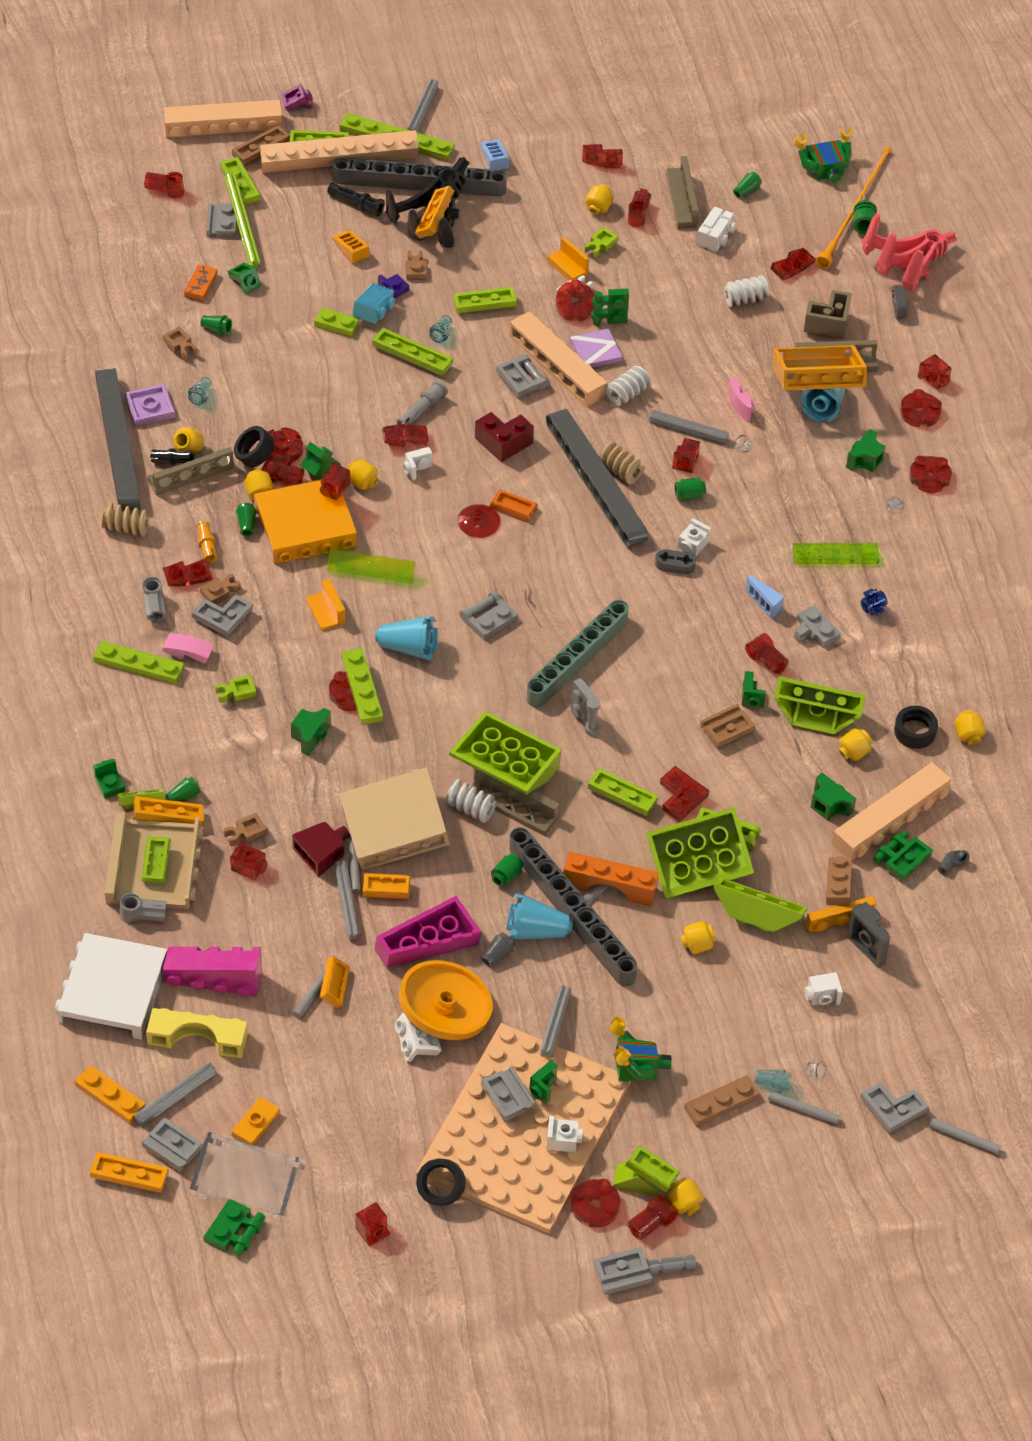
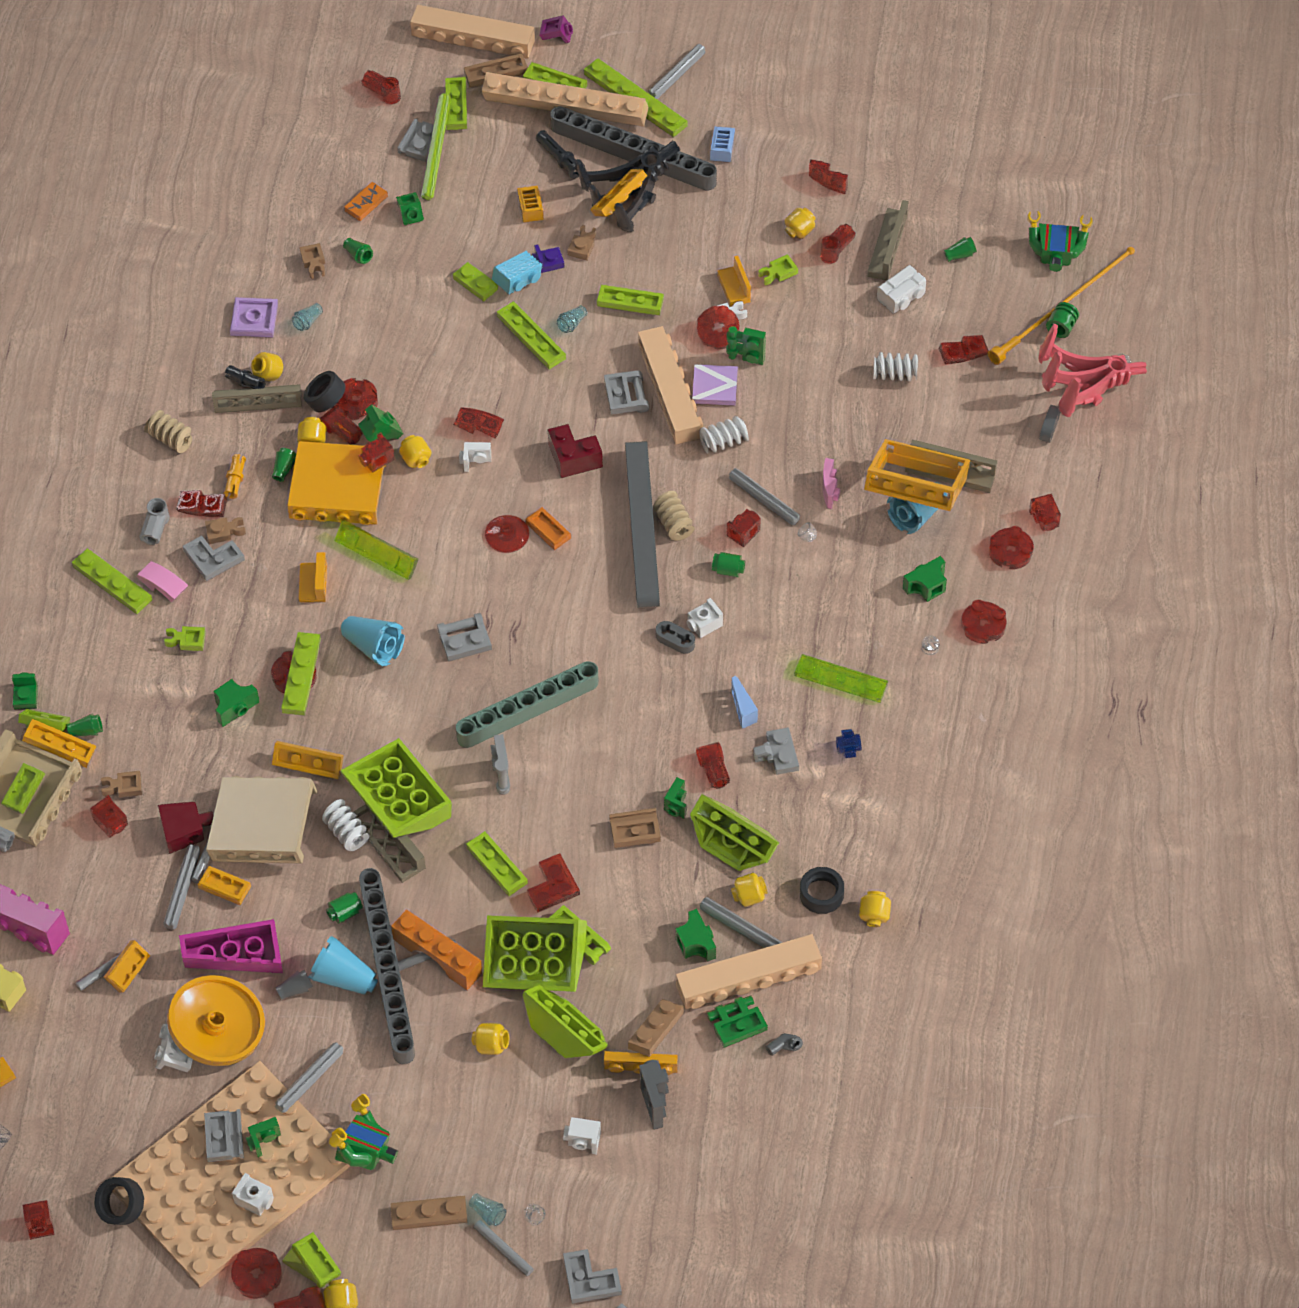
camera: 25 degrees right, 5 degrees up
(117, 439) = (204, 344): dark grey beam -> none
(405, 757) = (307, 759): none -> light orange plate
(428, 400) = (520, 390): light grey pin -> none
(828, 318) = (966, 422): dark tan brick -> none
(860, 776) = (737, 923): none -> light grey axle

